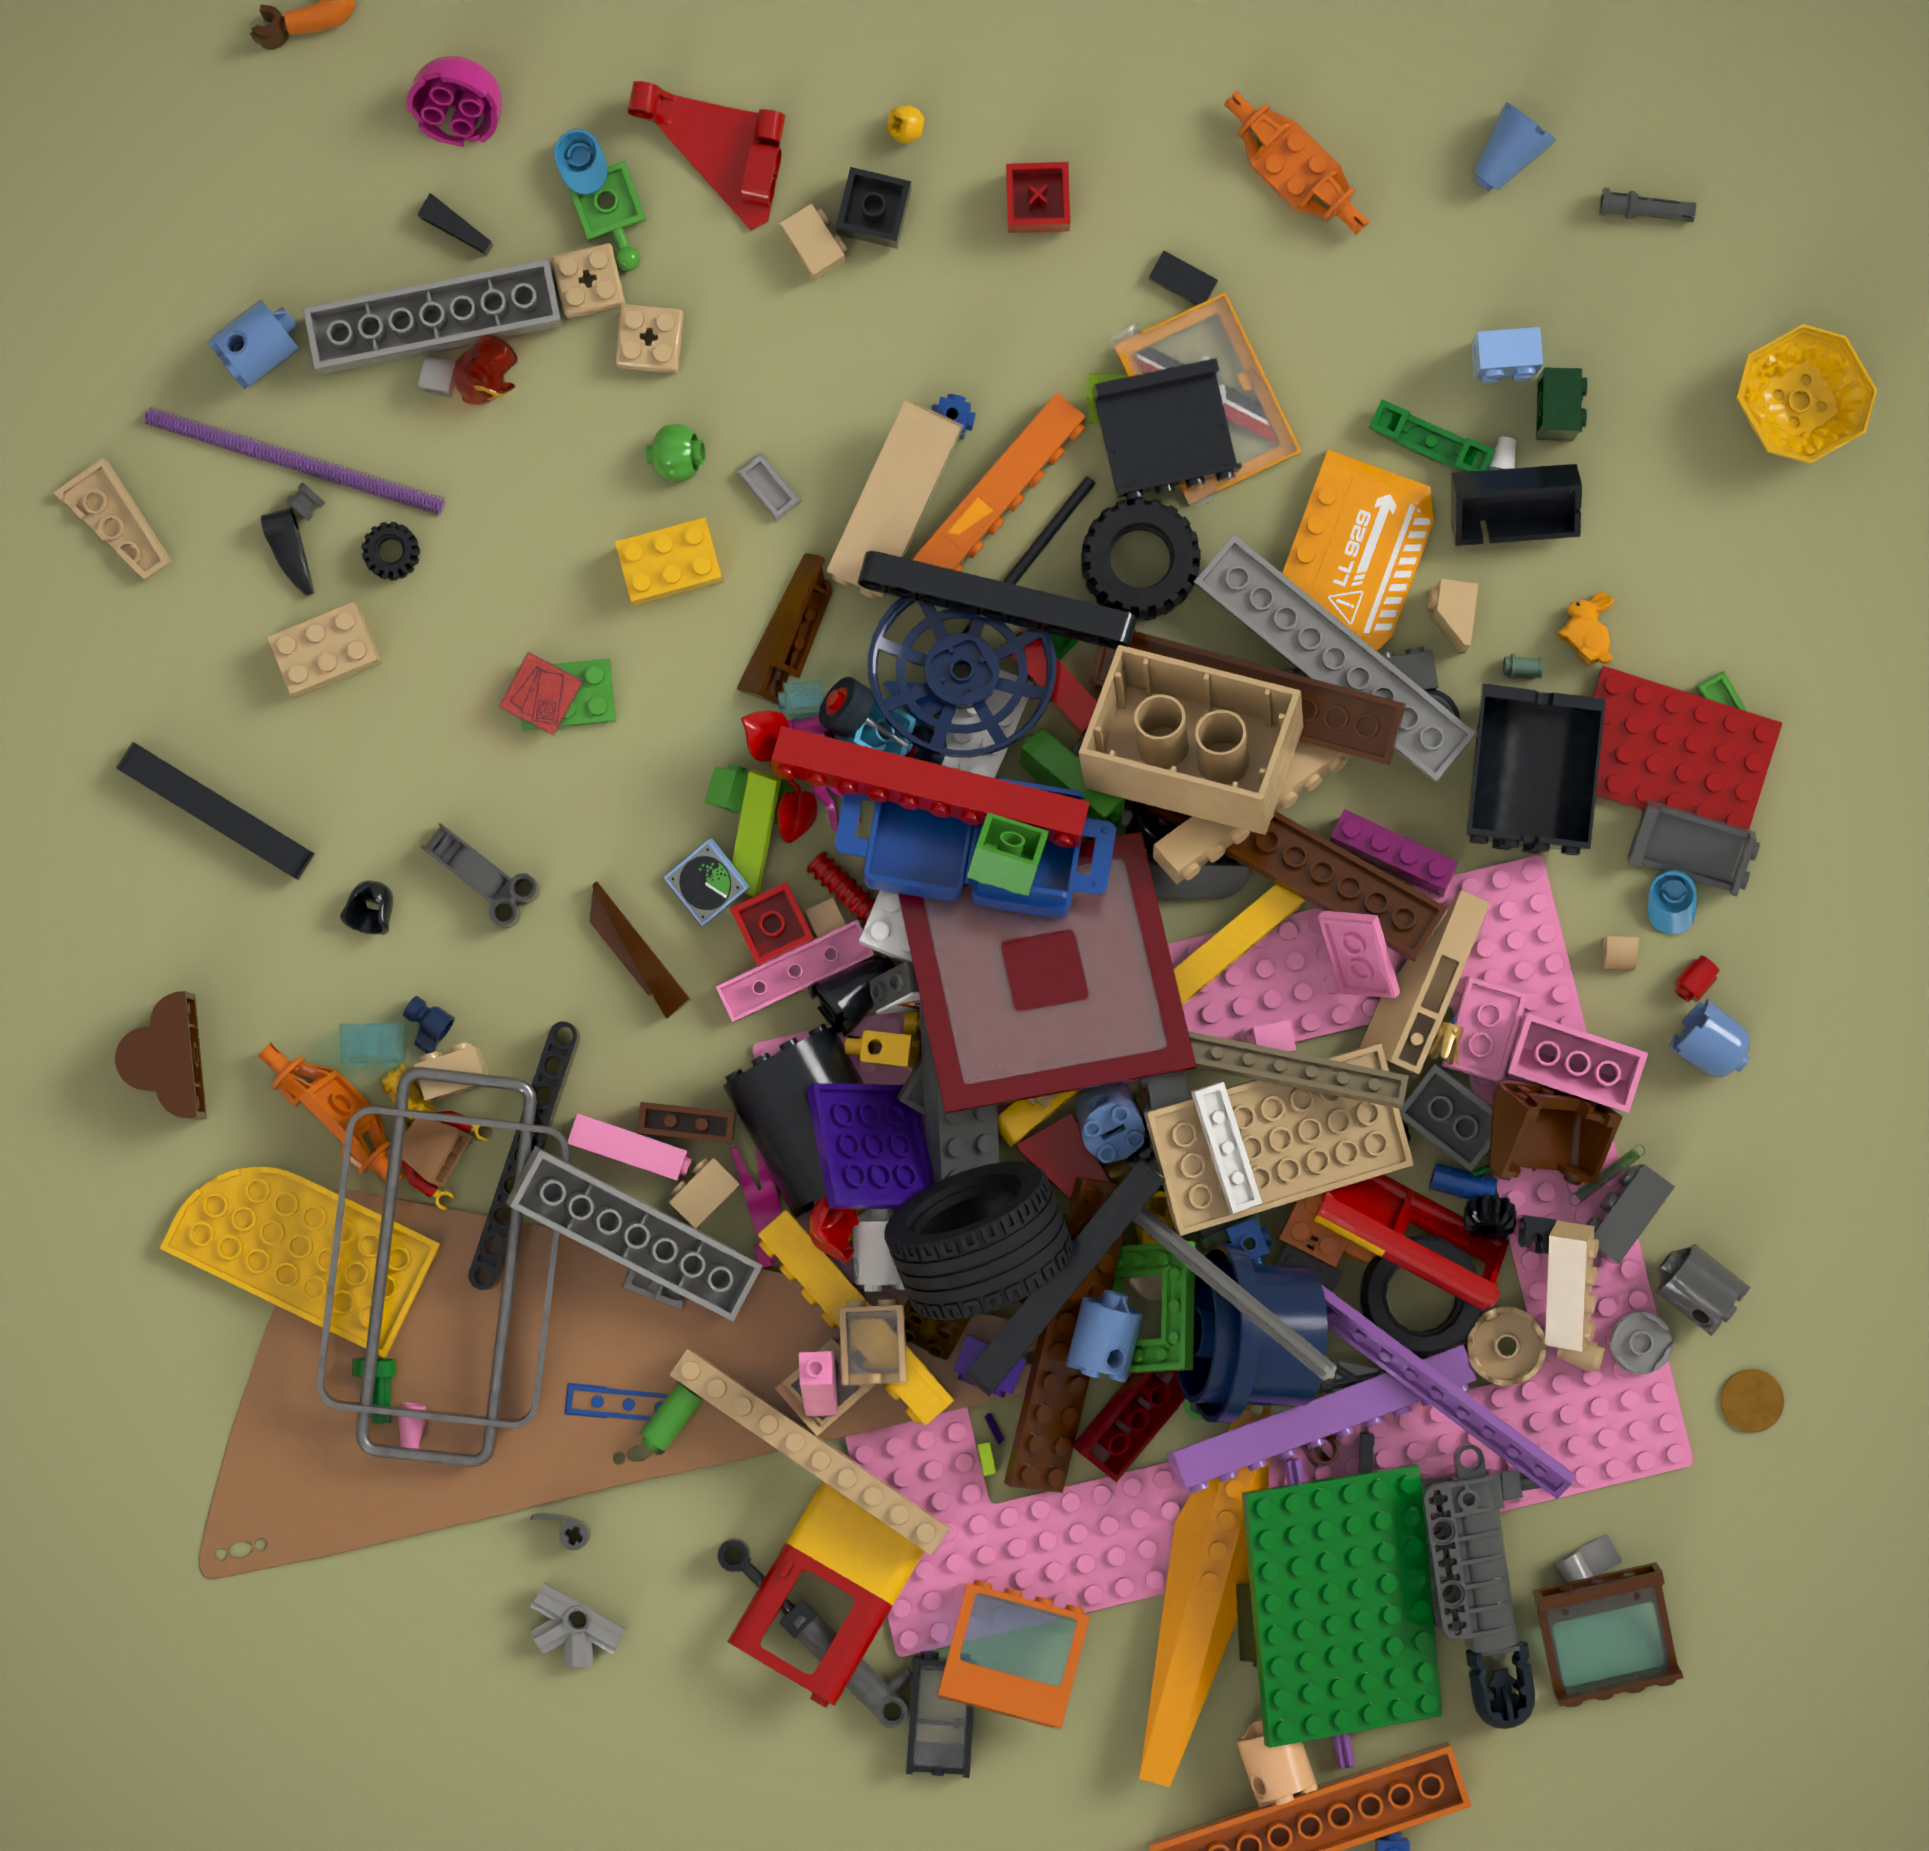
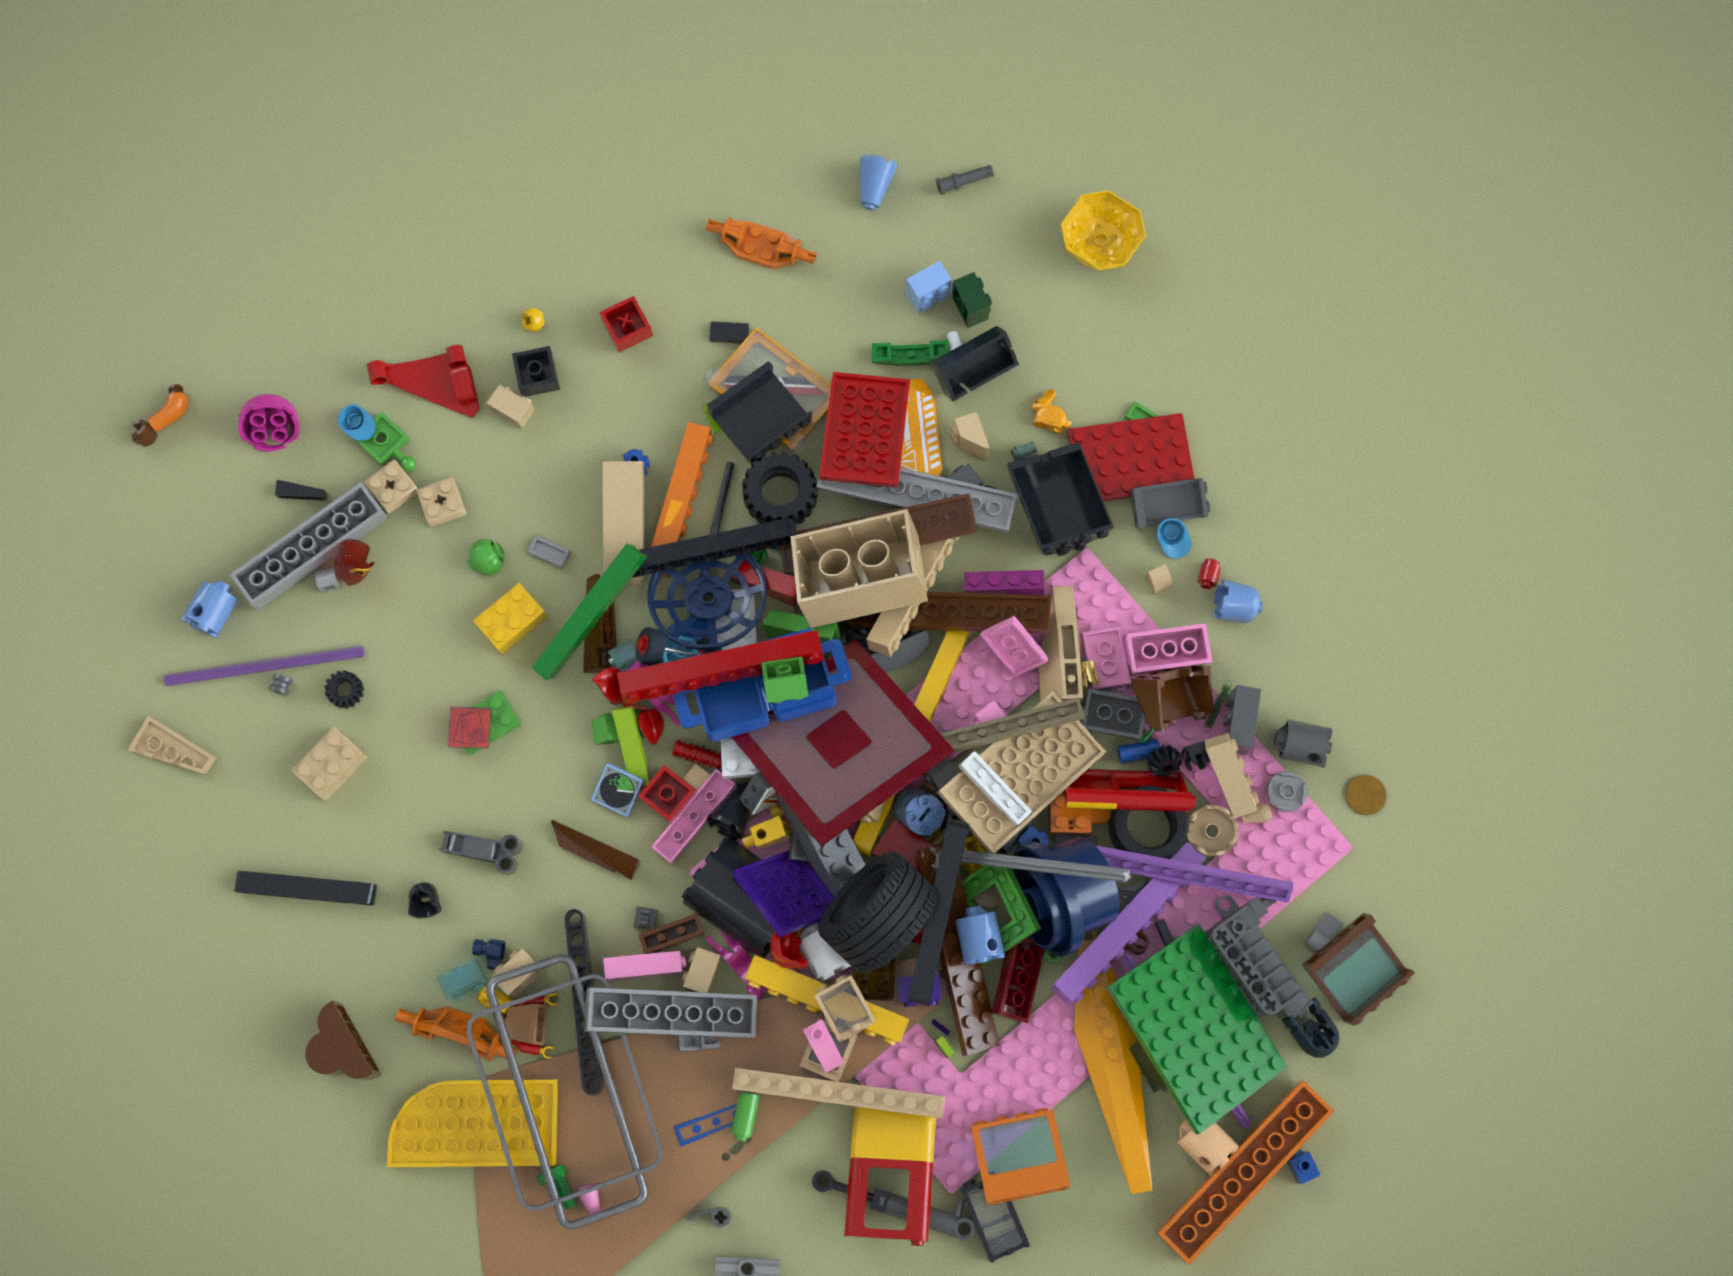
camera: 30 degrees left, 10 degrees down
(287, 546) = (281, 715): black piece -> none
(661, 1080) = (645, 918): none -> dark grey tile
(784, 612) = (589, 612): none -> green tile
(1305, 530) = (865, 429): none -> red plate

